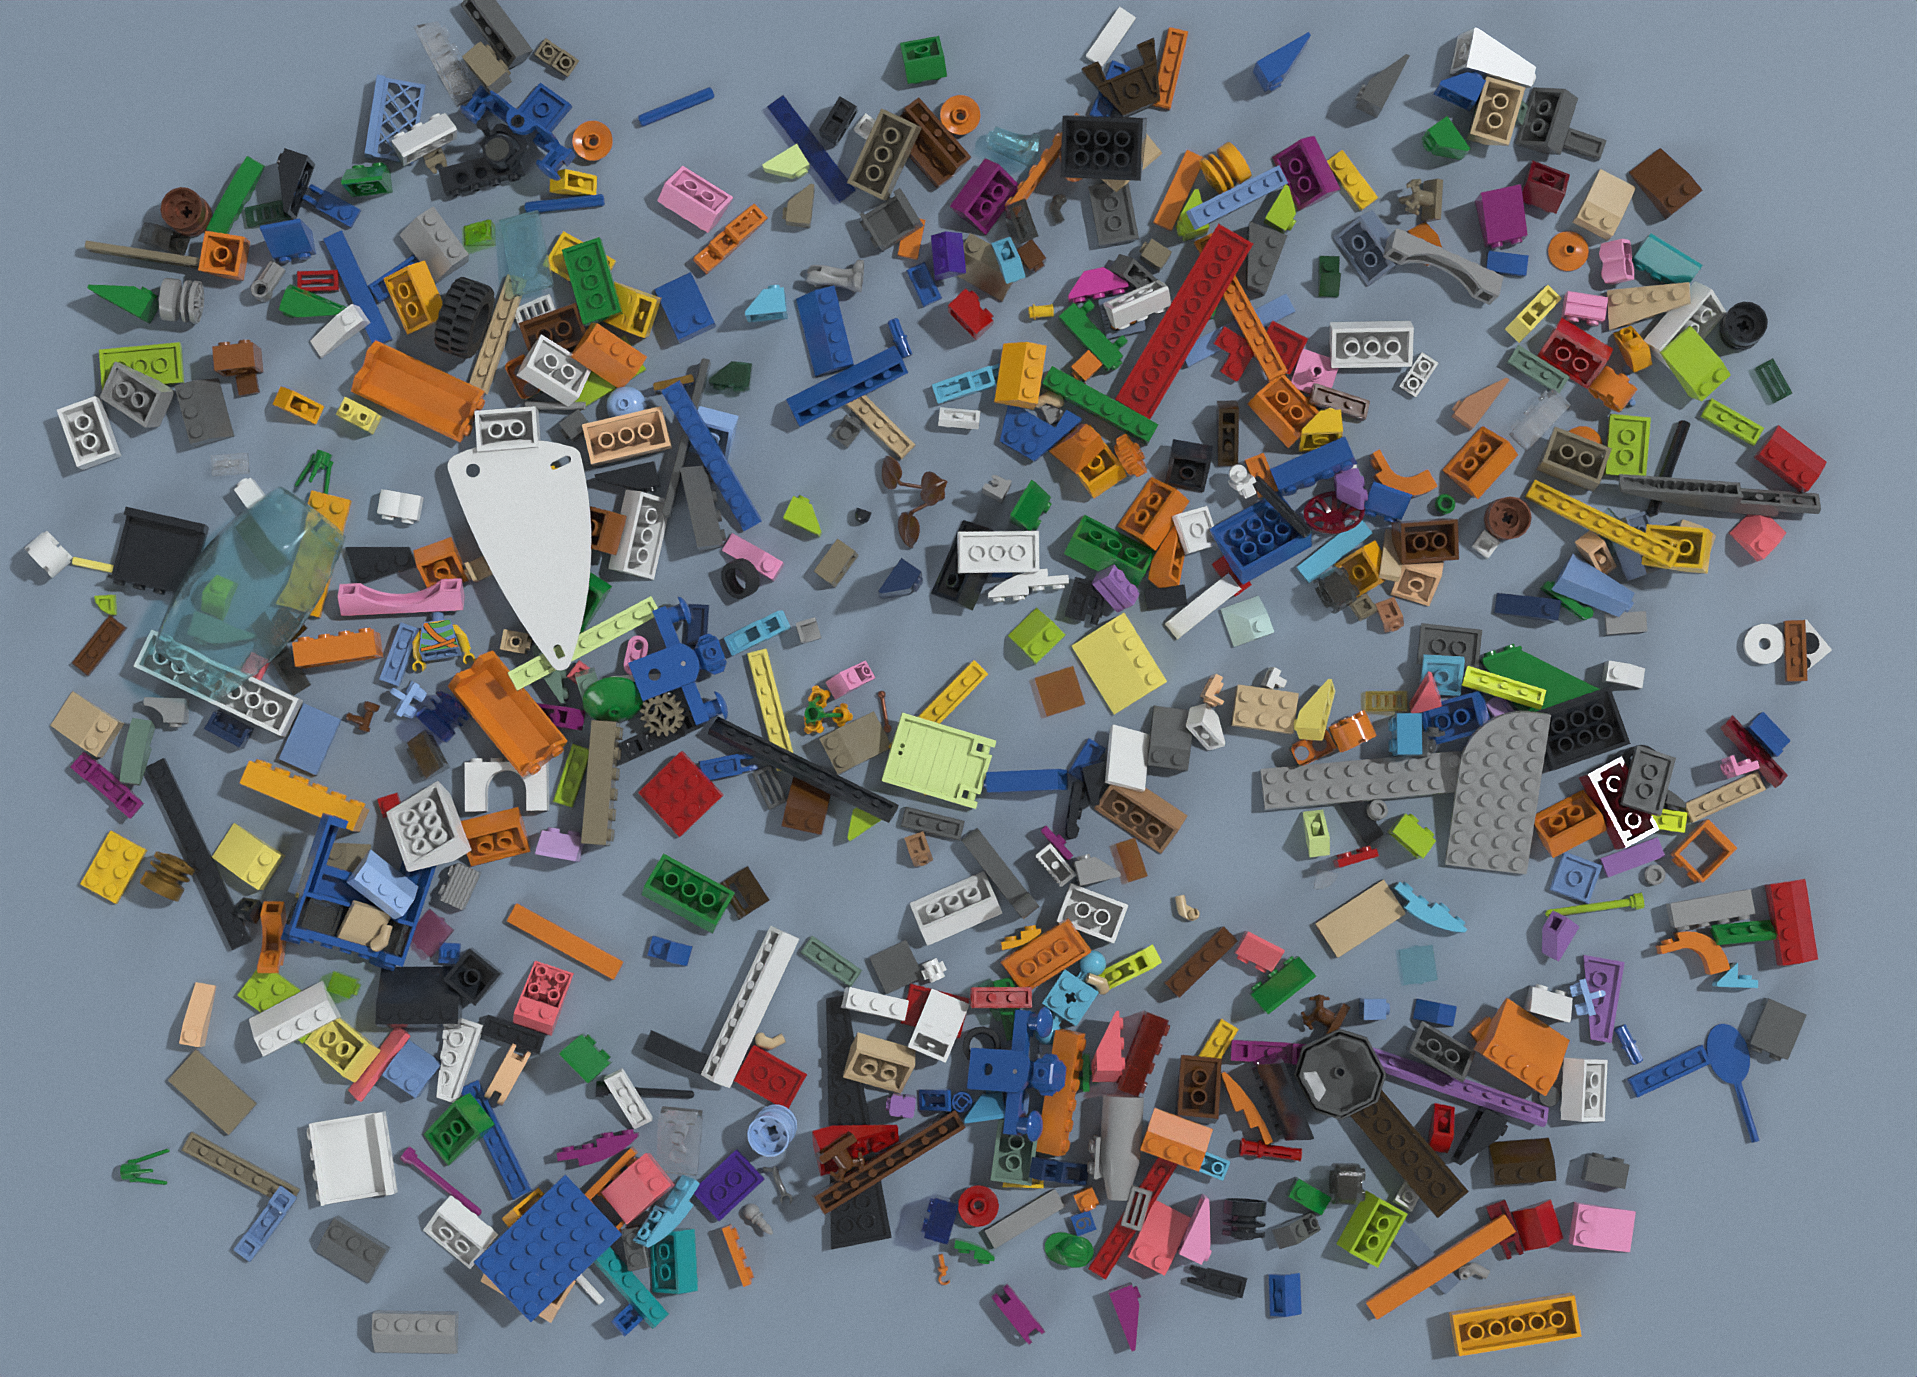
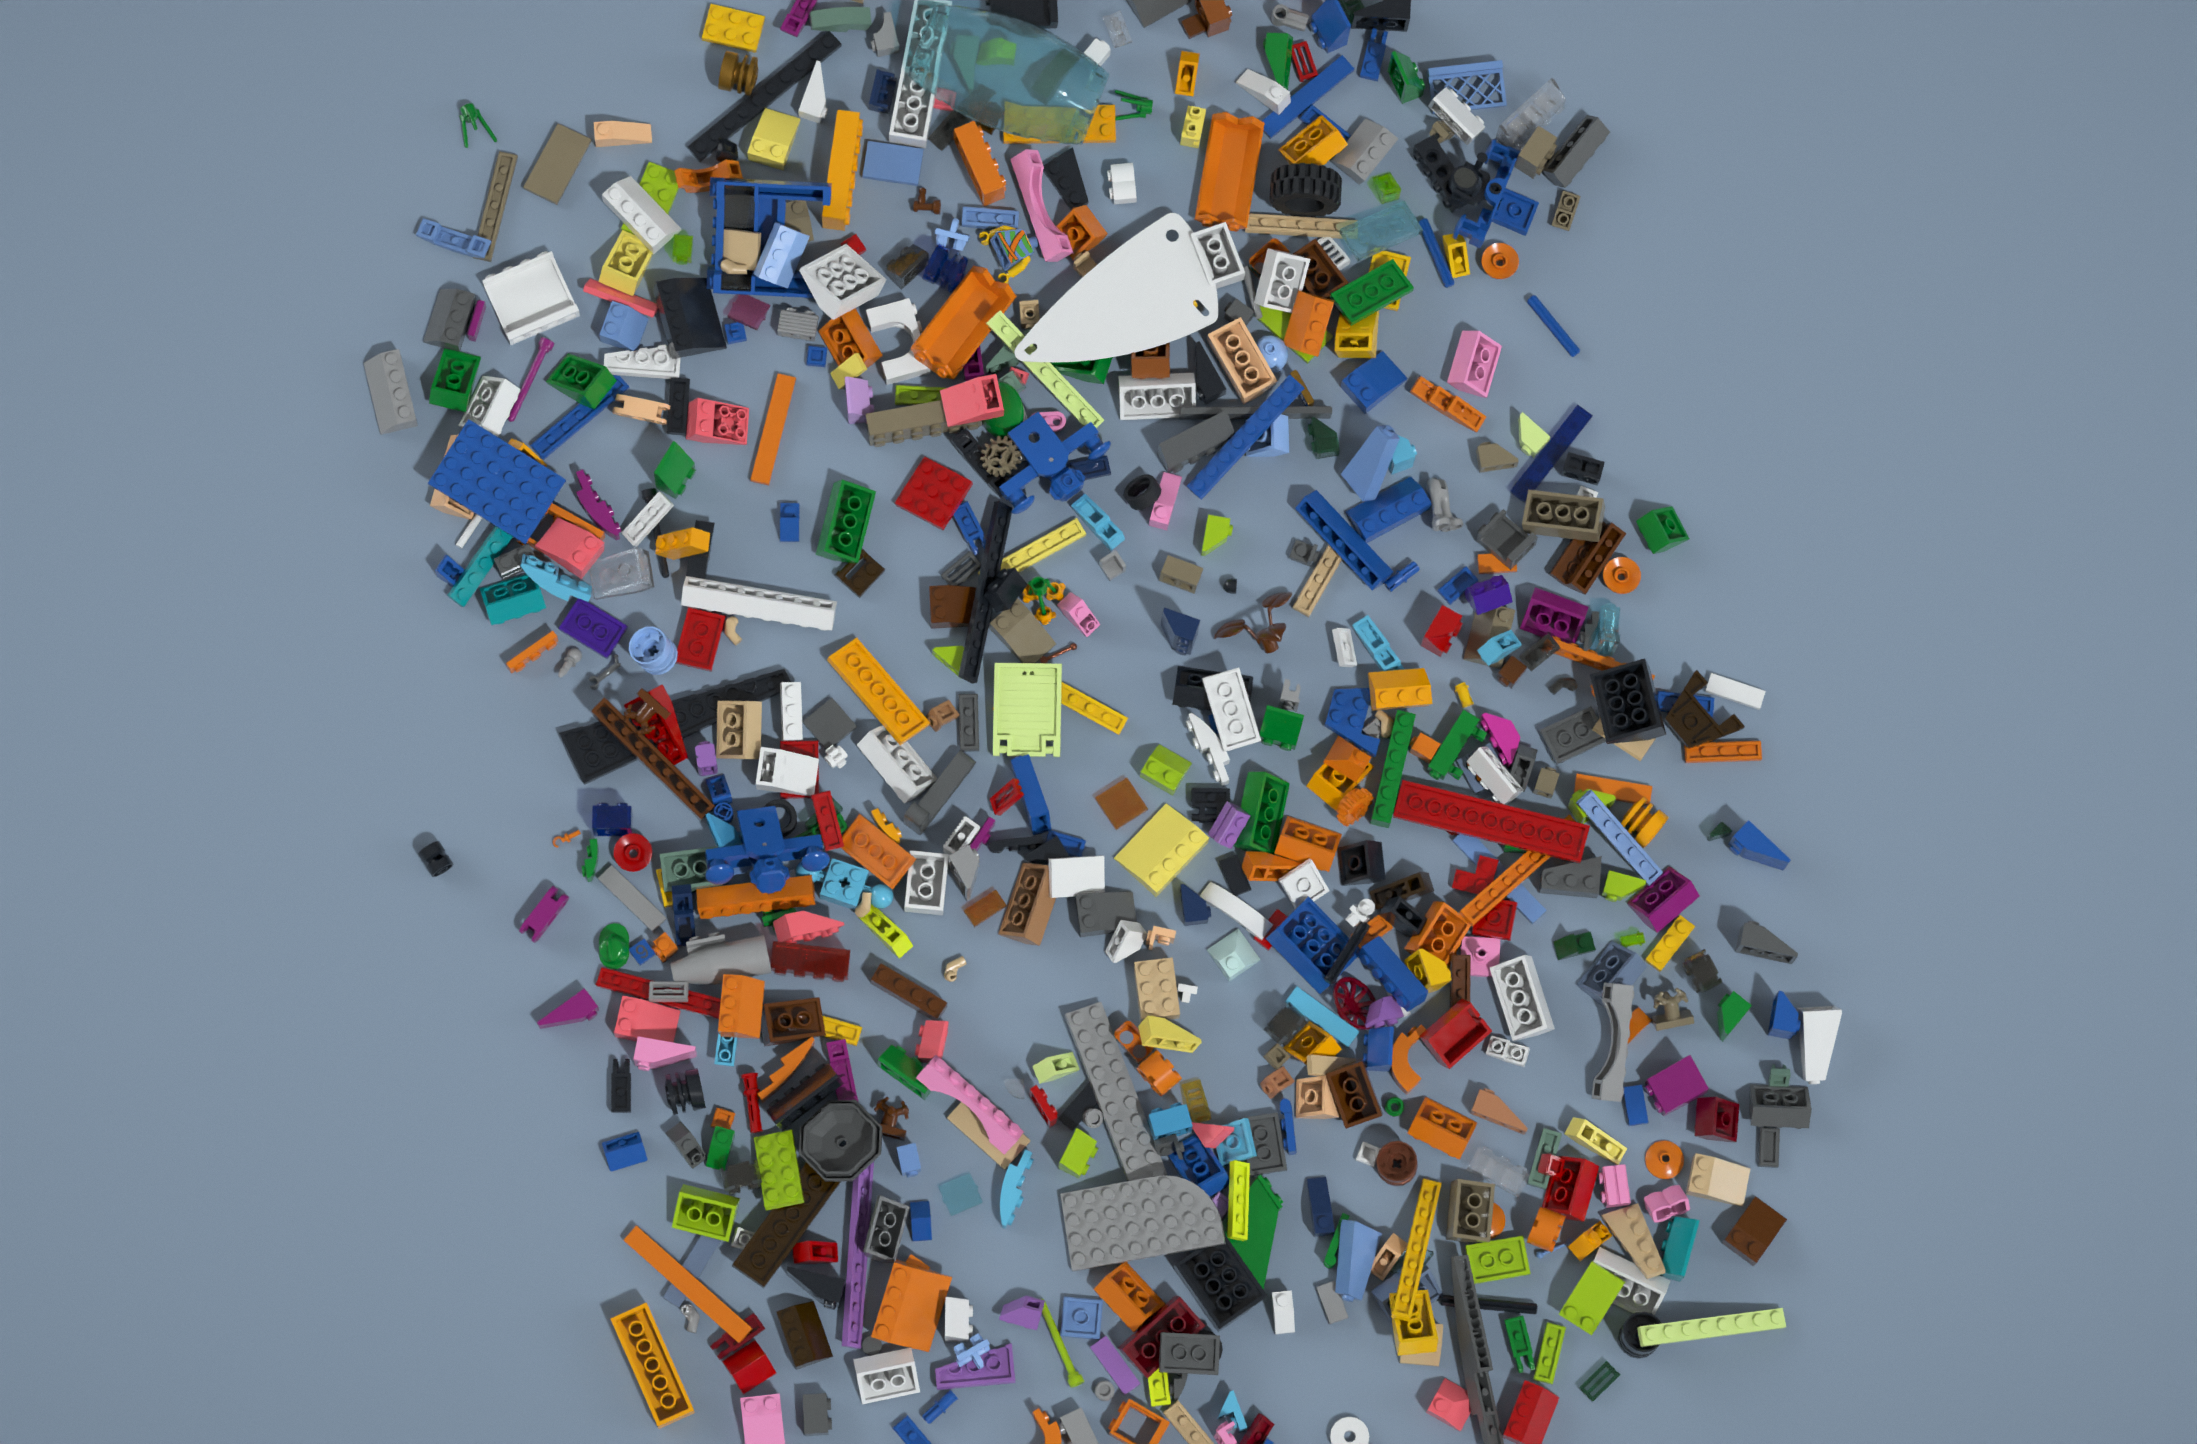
camera: 70 degrees right, 10 degrees down
(220, 804) = (814, 102): none -> white slope
(361, 1221) = (476, 320): none -> magenta tile
(420, 1261) = (454, 380): none -> green slope
(473, 976) = (721, 356): black slope -> none
(498, 875) = (816, 356): none -> blue tile
(525, 846) = (851, 367): none -> light yellow tile
(600, 728) = (972, 401): none -> coral slope
(667, 1070) = (682, 543): none -> light orange brick
(778, 336) = (1371, 463): none -> medium blue slope
(806, 748) = (1005, 589): none -> black brick
(831, 961) = (818, 666): sand green tile -> none
(876, 908) = (878, 691): none -> light orange plate
(1016, 167) = (1590, 631): none -> dark grey slope
(1021, 795) = (1007, 800): none -> red tile
(1189, 648) = (1193, 907): none -> dark blue slope
(1252, 96) = (1720, 831): none -> clear green slope
(1257, 439) = (1403, 916): none -> black brick
(1278, 1185) = (723, 1118): none -> orange tile
(1306, 953) = (941, 1078): none -> bright pink arch
(1339, 216) = (1632, 939): none -> clear neon green pin
(1349, 1143) = (779, 1170): none -> lime plate
(1391, 421) = (1455, 1033): none -> red piece
(1393, 155) = (1702, 971): none -> clear smoke brick
(1436, 616) = (1288, 1126): none -> blue hinge
(1495, 113) = (1771, 1053): tan slope -> none
(1548, 365) = (1551, 1165): none -> red slope
(1705, 754) = (1232, 1407): none -> medium azure slope
(1714, 448) = (1519, 1341): none -> green hinge
(1755, 254) = (1711, 1327): none -> yellowish green plate

